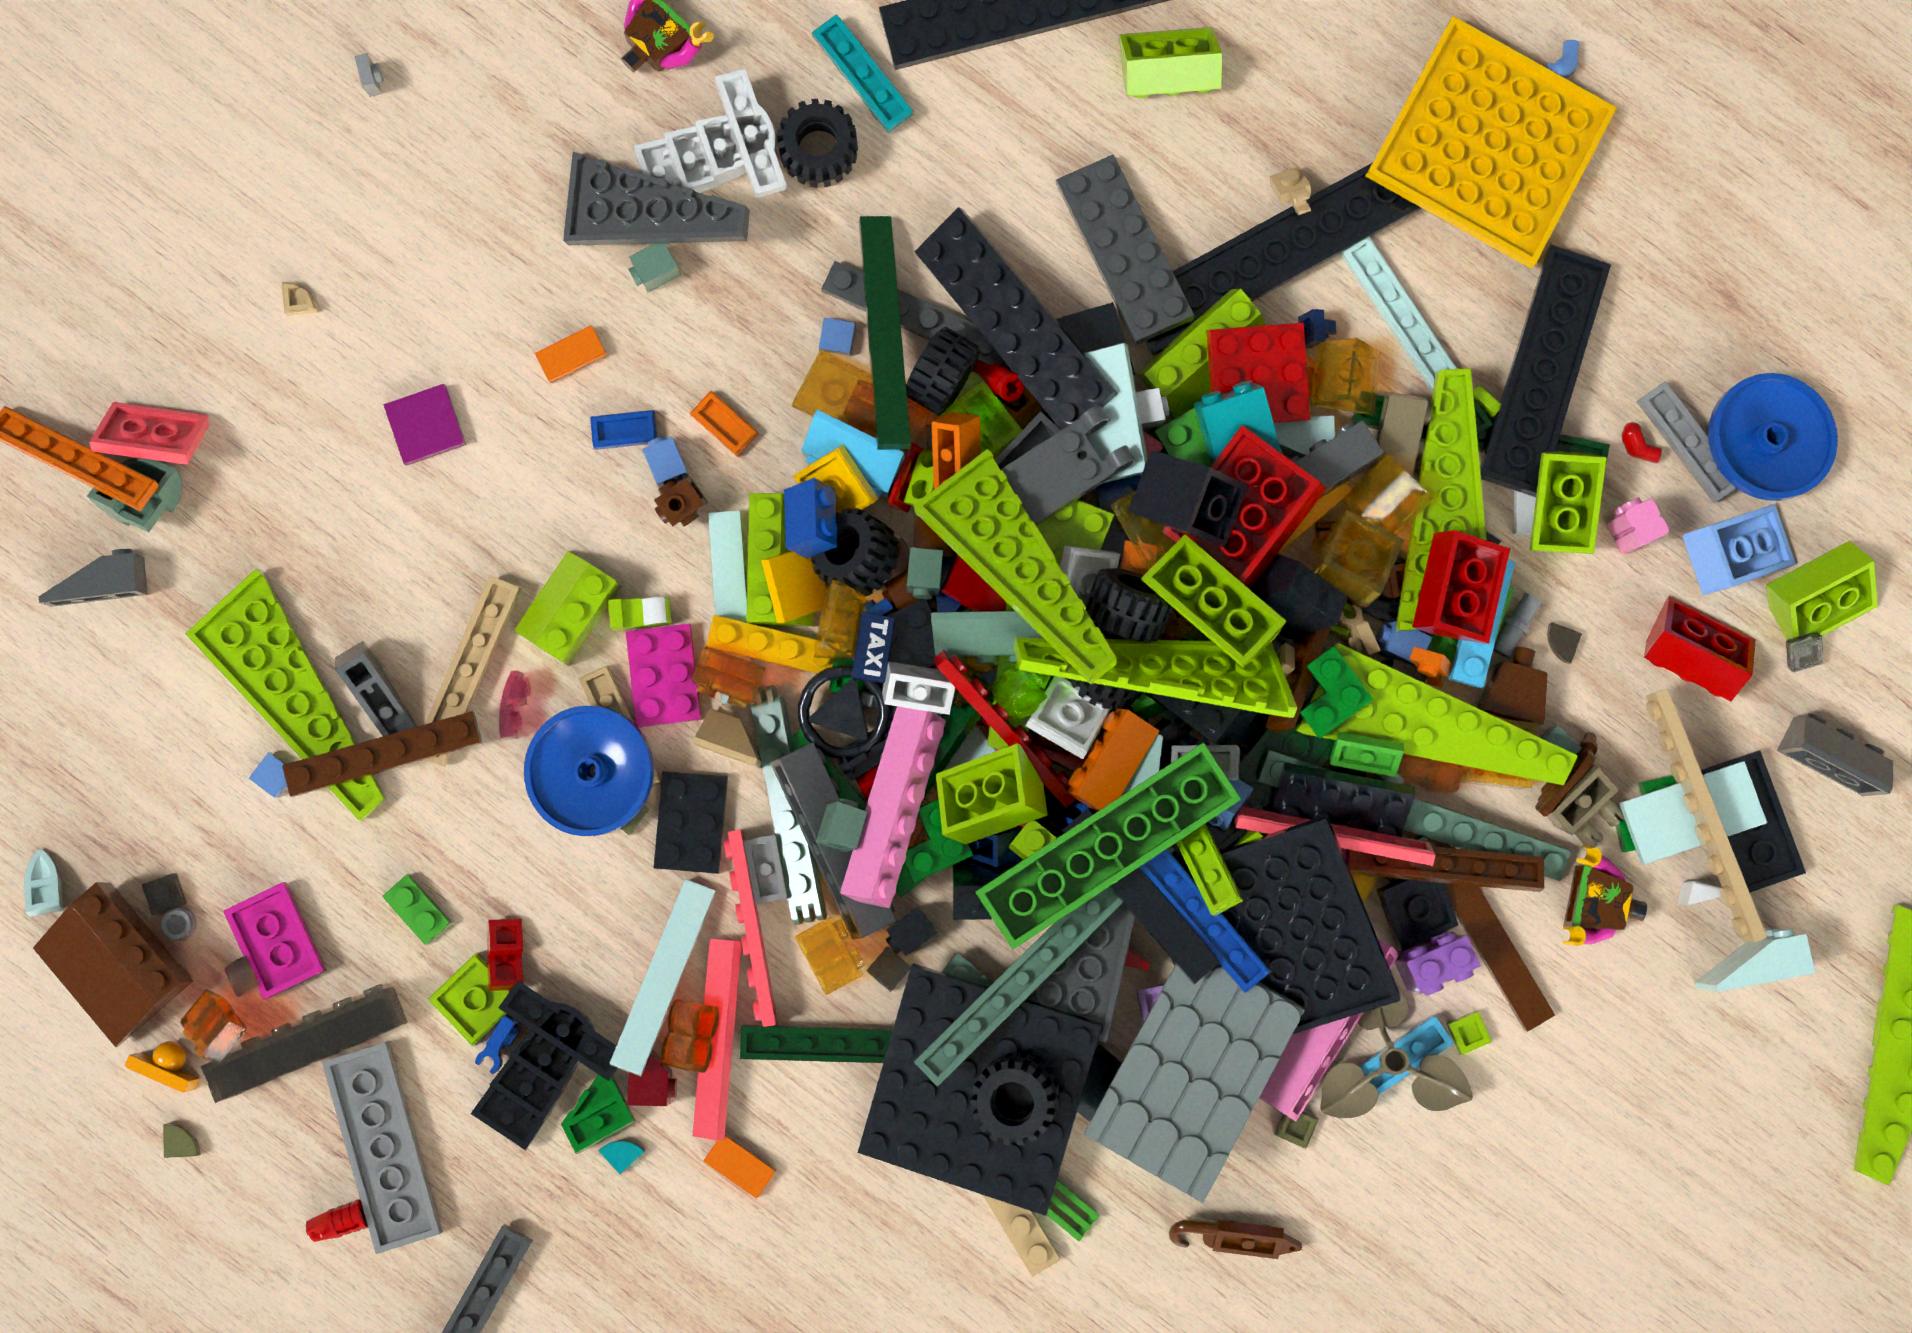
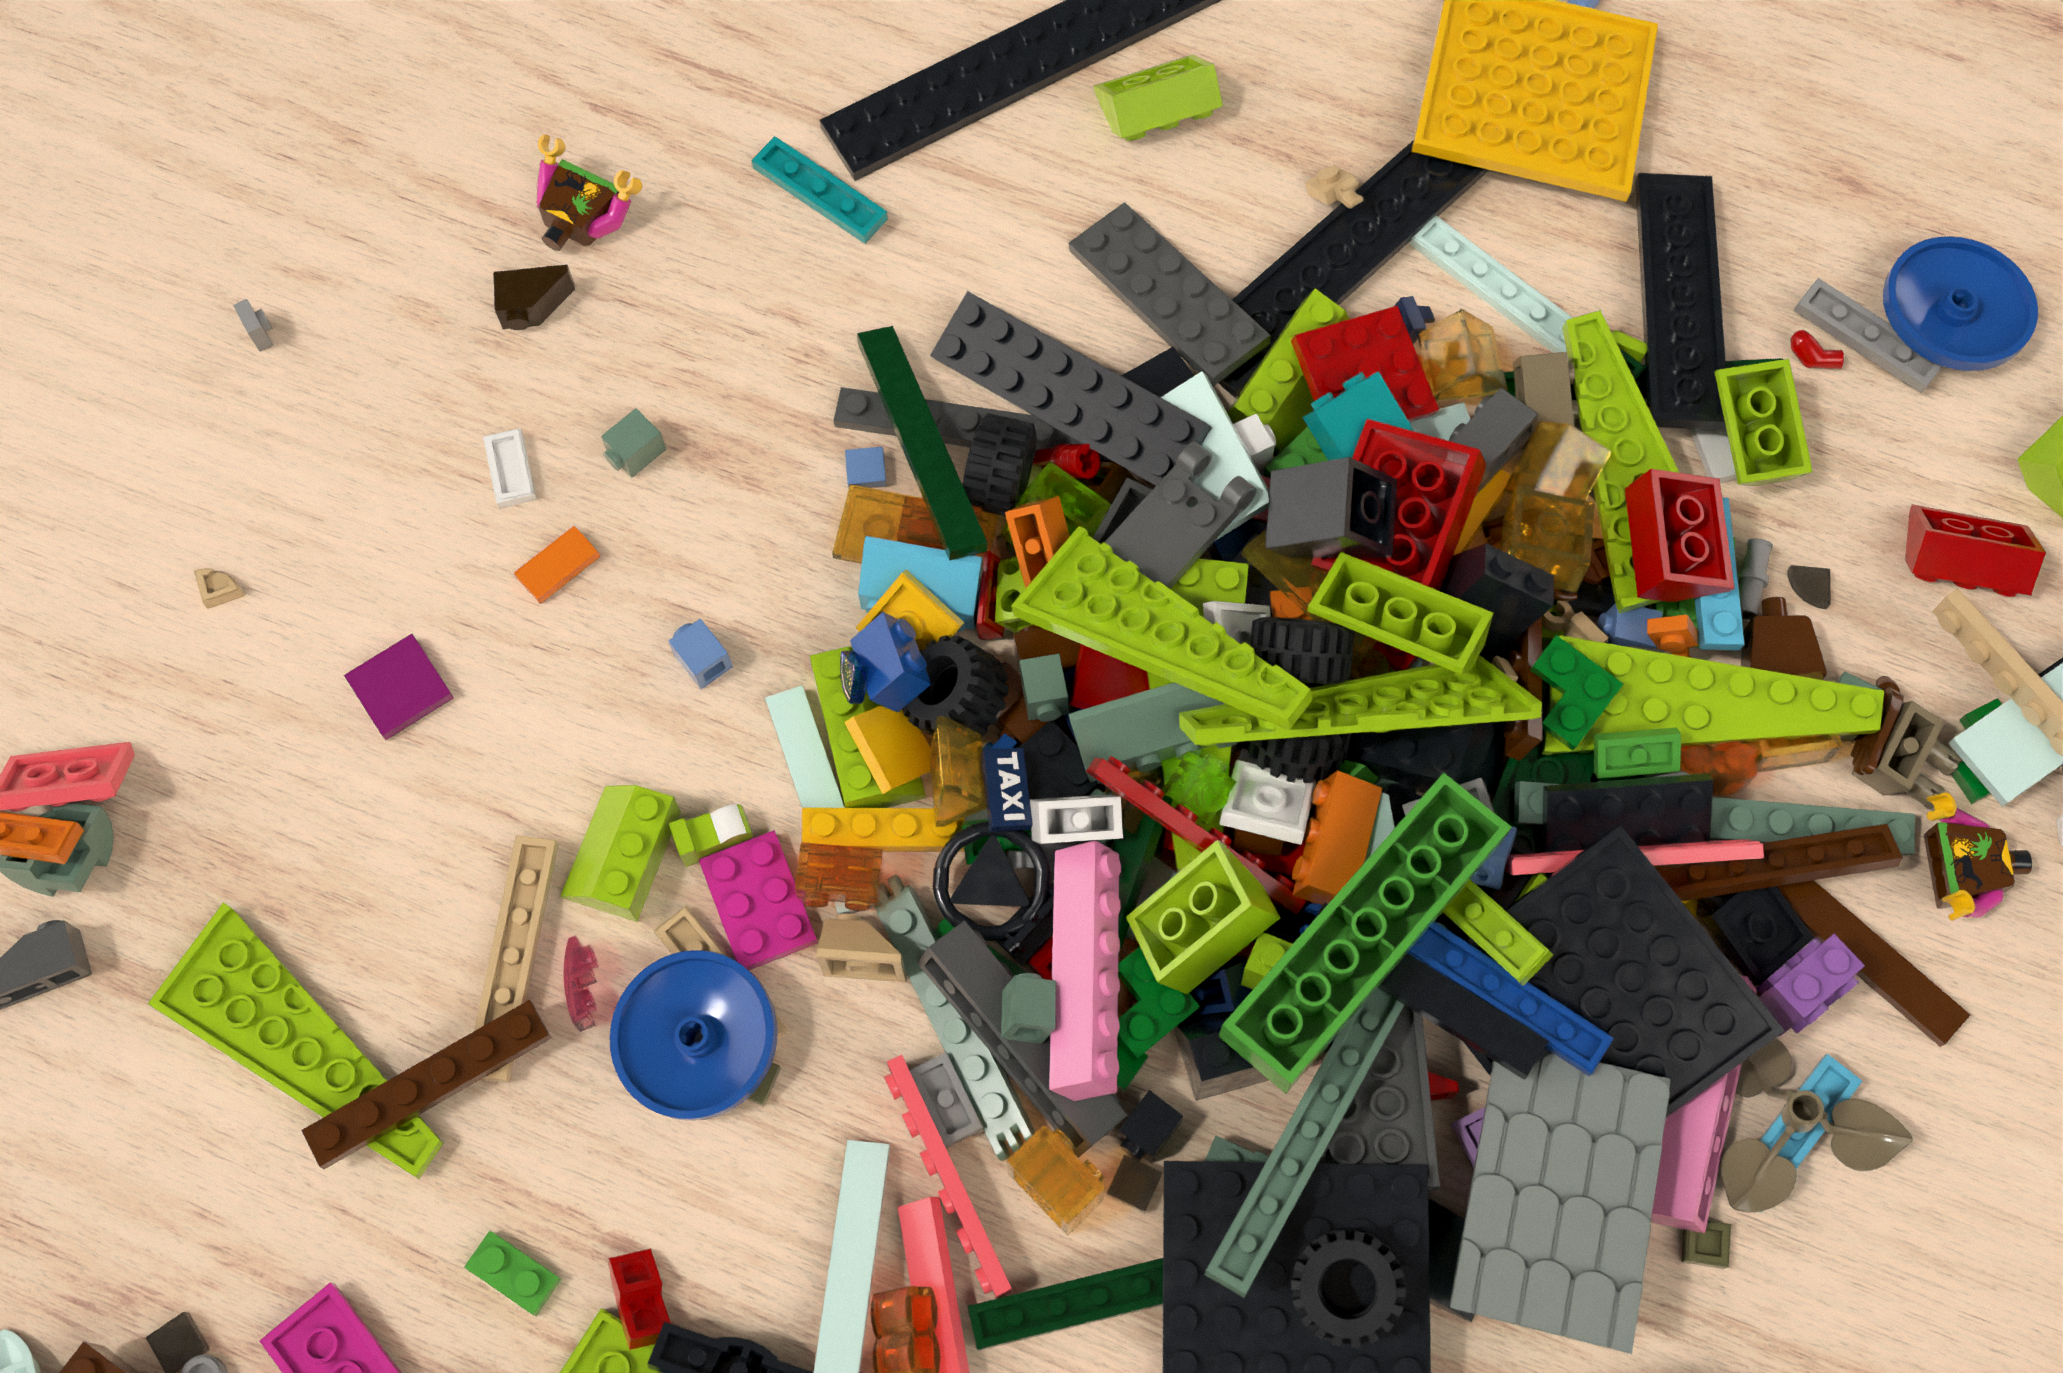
camera: 10 degrees left, 15 degrees down
(270, 775) = (289, 1153): medium blue tile -> none
(373, 689) = (399, 1009): dark grey slope -> none
(550, 259) = (509, 468): none -> white tile
(599, 108) = (530, 294): none -> dark brown slope
(623, 429) = (638, 632): blue tile -> none
(634, 208) = (598, 383): dark grey wing -> none
(690, 498) = (727, 676): reddish brown brick -> none
(690, 822) = (836, 1070): black plate -> none
(719, 146) = (672, 304): white slope -> none
(724, 423) = (758, 595): orange tile -> none
(778, 523) = (853, 676): none -> tile
(817, 118) = (785, 243): black tyre -> none
(1468, 1032) = (1875, 1066): lime tile -> none
(1636, 524) = (1847, 430): bright pink brick -> none
(1738, 549) = (1968, 432): light blue slope -> none

